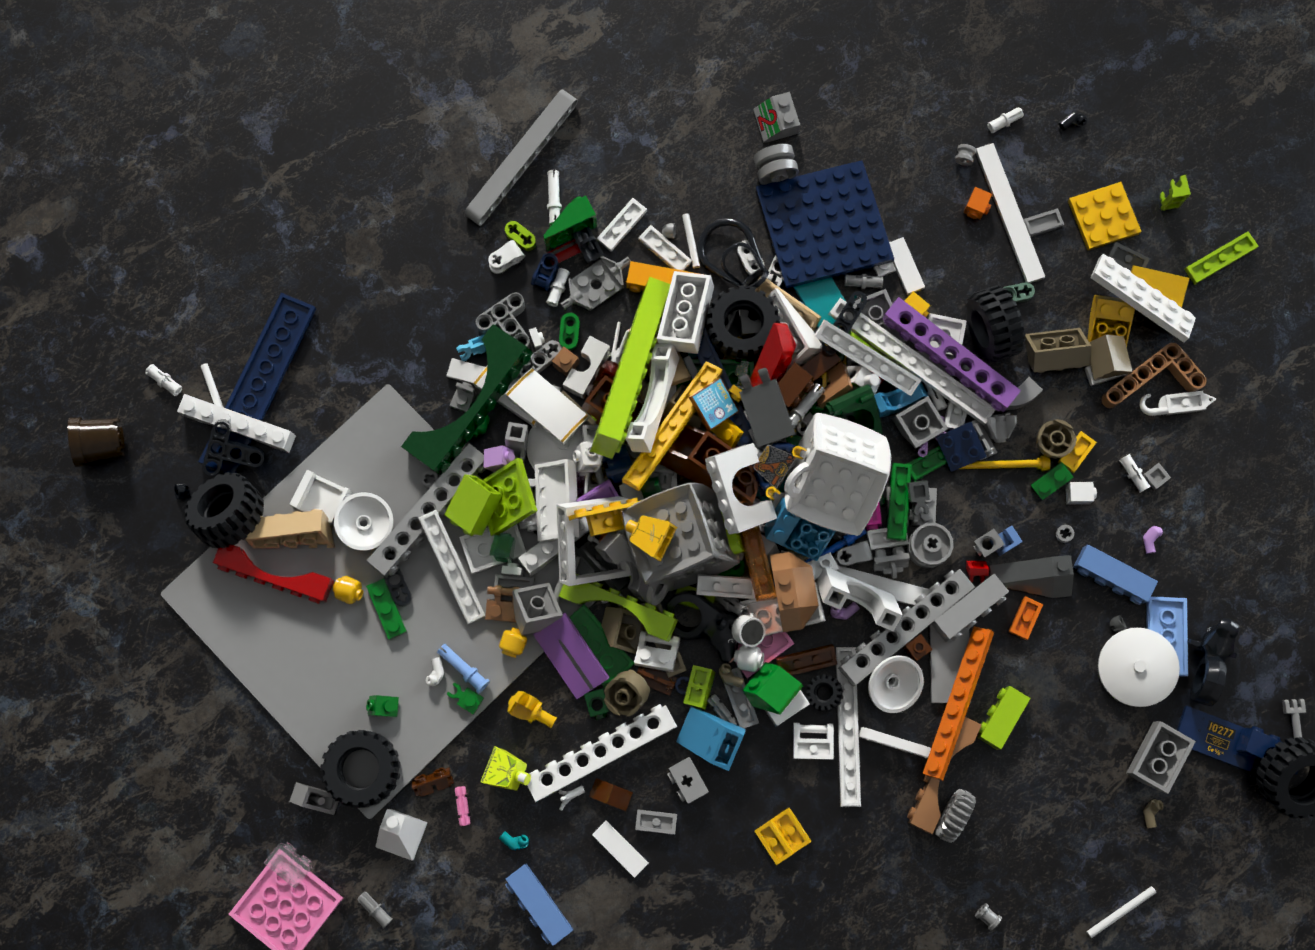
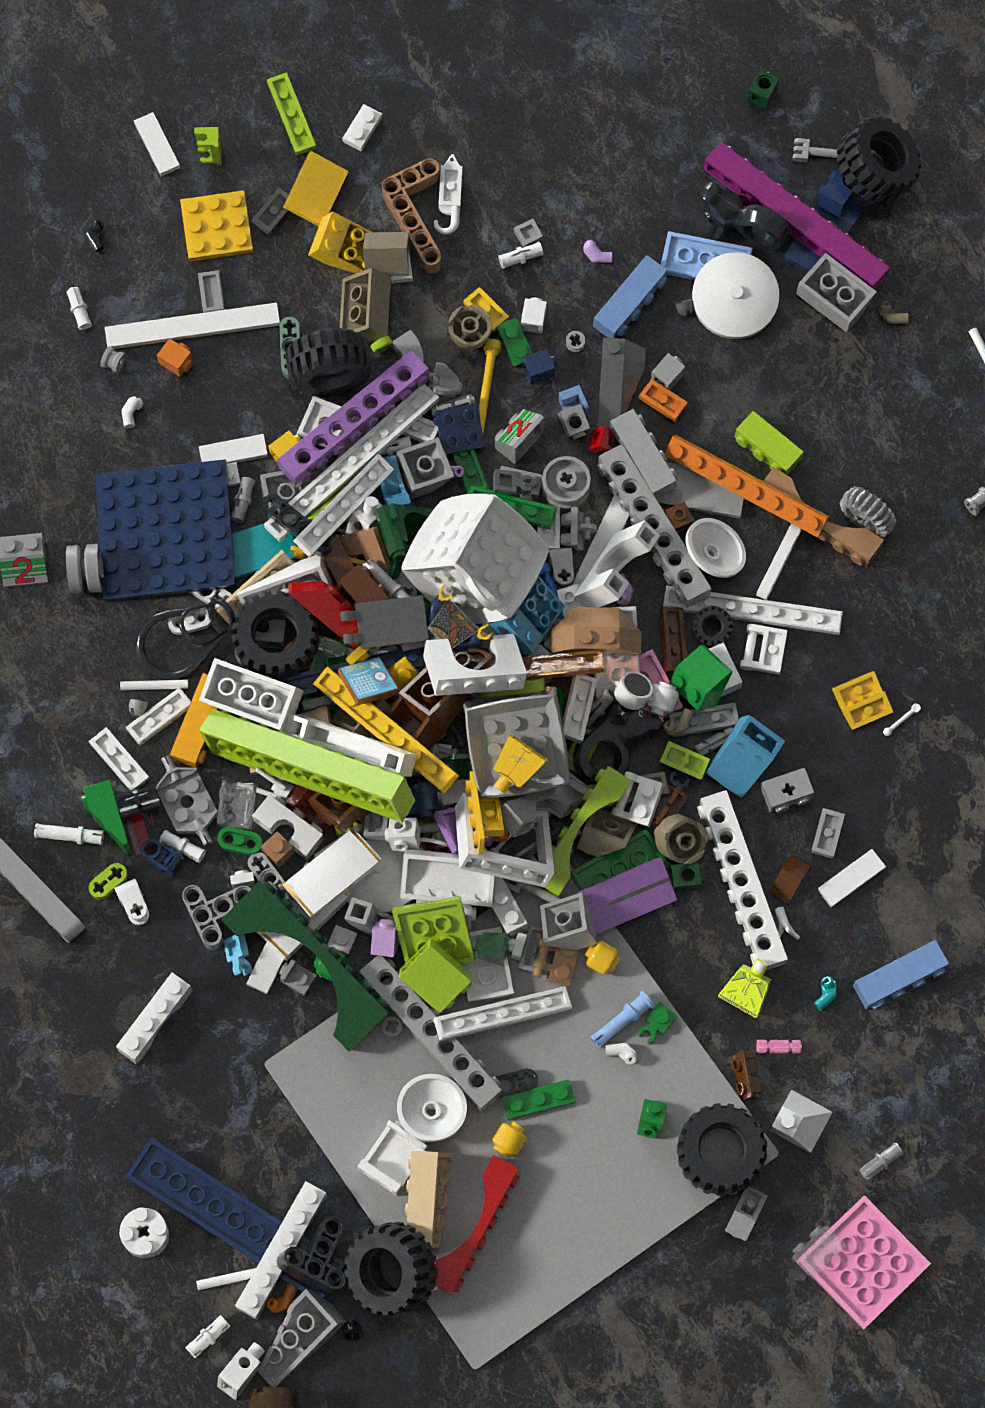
camera: 80 degrees left, 5 degrees down
(130, 405) = (234, 1377): none -> white torso
(175, 452) = (304, 1330): none -> light grey wedge
(197, 432) = (283, 1302): none -> orange arm
(237, 325) = (146, 1246): none -> white brick
(399, 284) = (159, 1009): none -> white arch
(498, 427) = (342, 939): none -> white plate
(529, 708) = (680, 951): yellow piece -> none
(598, 322) = (236, 805): none -> clear bracket
(784, 885) = (914, 709): none -> white hinge
(925, 176) = (127, 411): none -> white arm
(966, 498) = (519, 435): none -> light grey slope
(1025, 369) = (381, 345): none -> lime tile
(1034, 506) = (539, 366): none -> dark blue brick
(1052, 618) = (668, 371): none -> light grey brick
(1143, 297) = (325, 202): white plate -> none
(1167, 154) = (156, 144): none -> white tile
(1223, 319) = (362, 127): none -> white plate
(1223, 715) = (804, 222): none -> magenta brick

